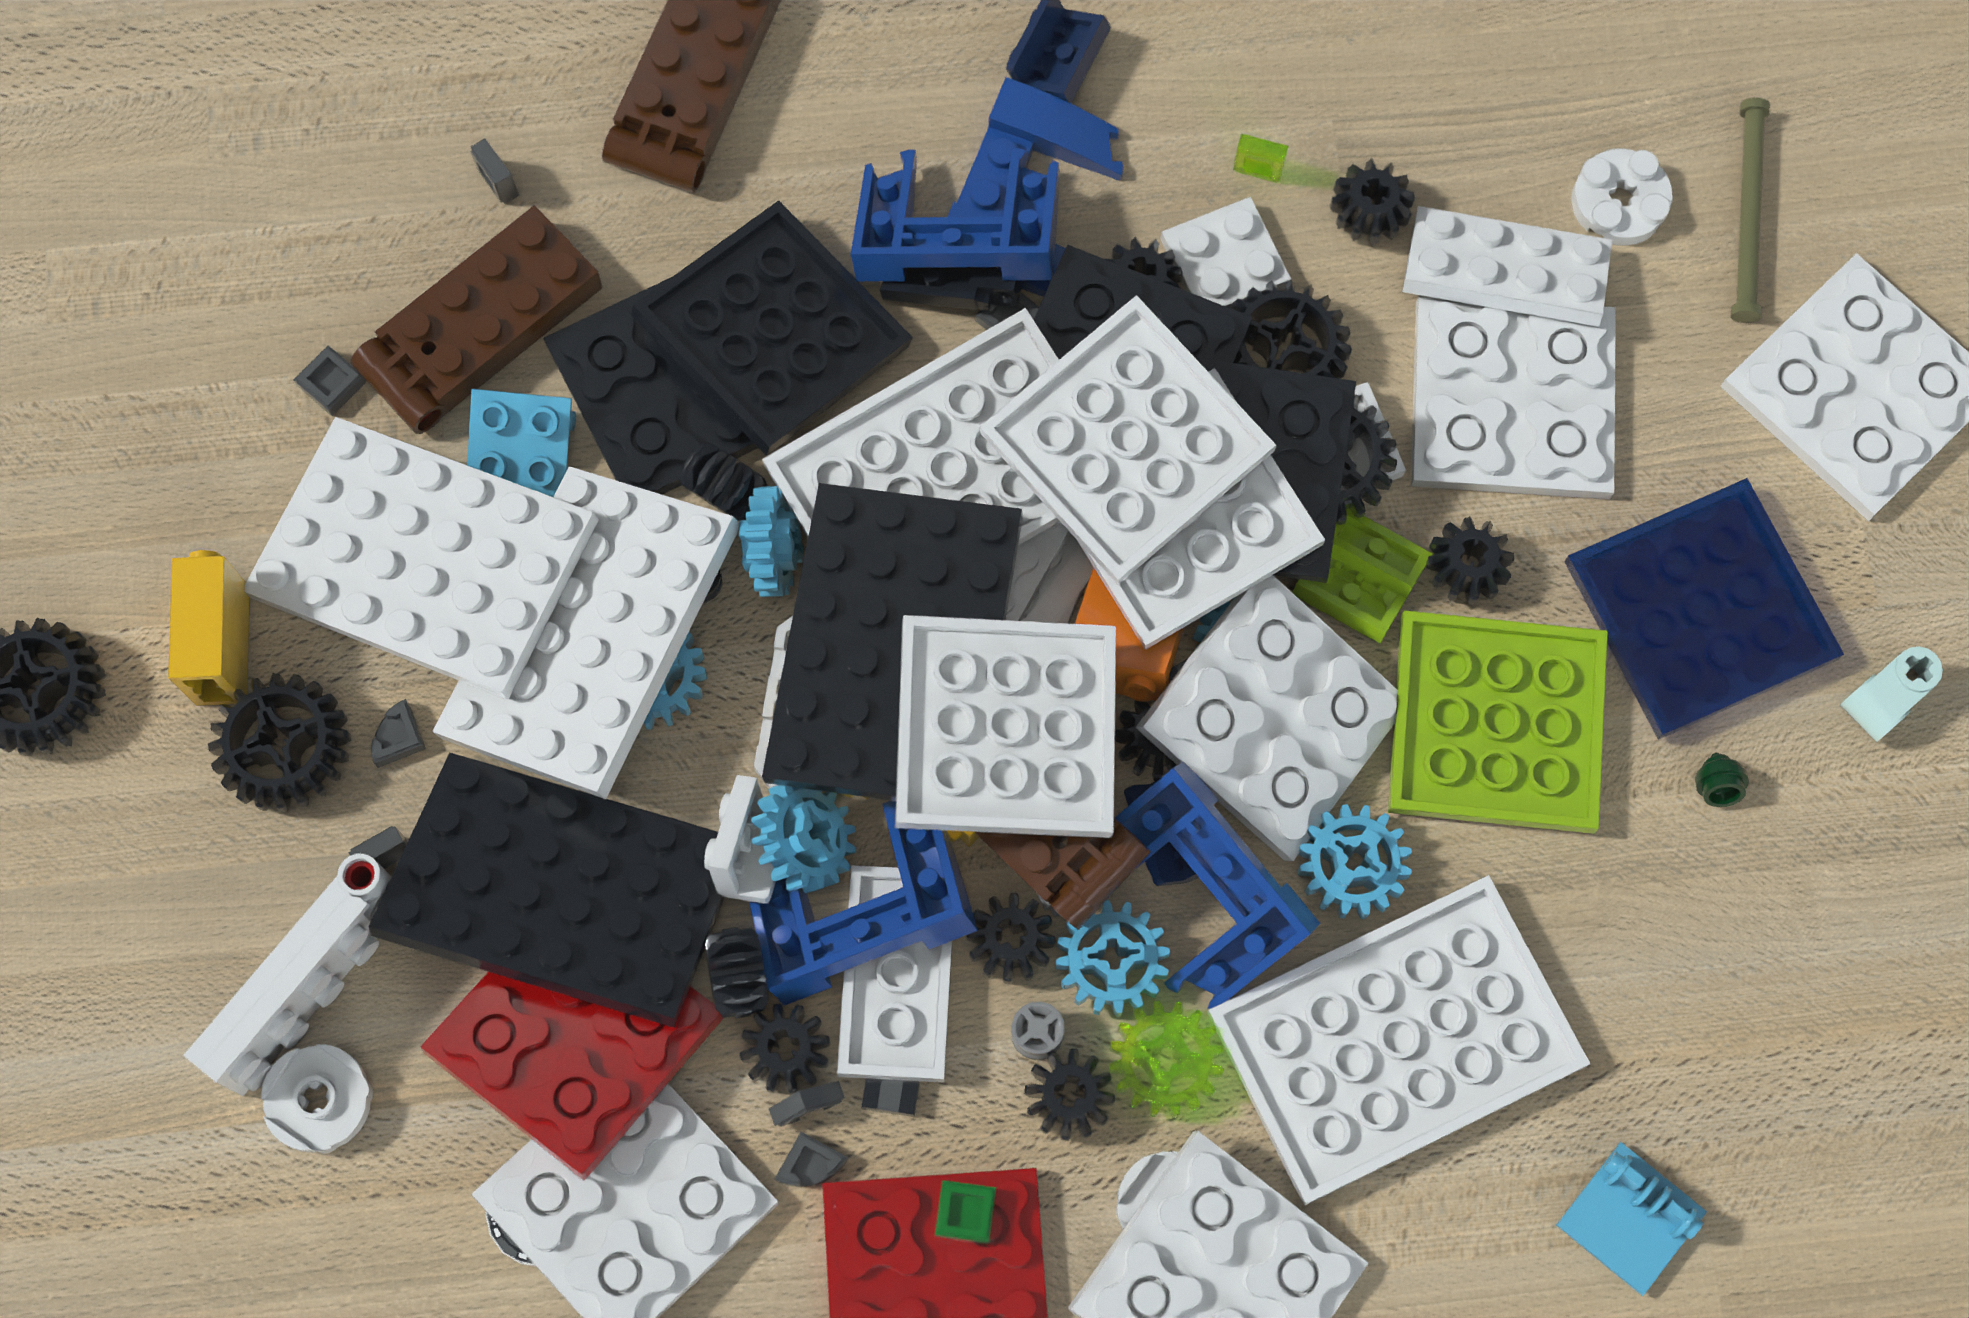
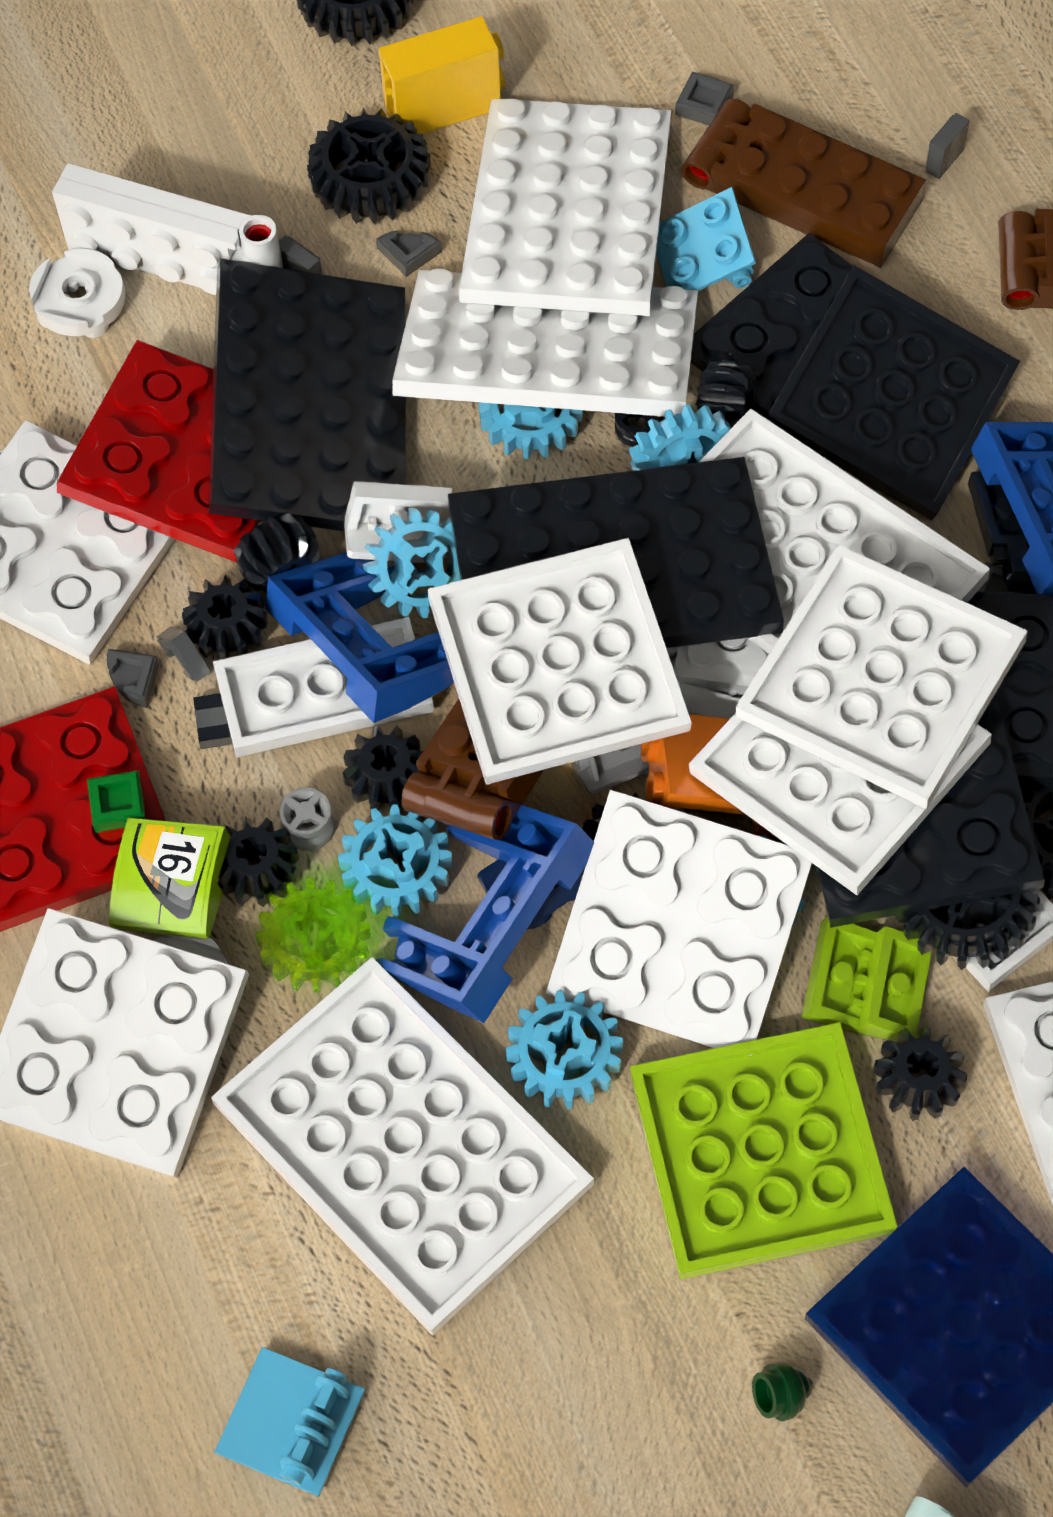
camera: 75 degrees right, 10 degrees down
(1069, 1182) = (168, 878): none -> lime slope

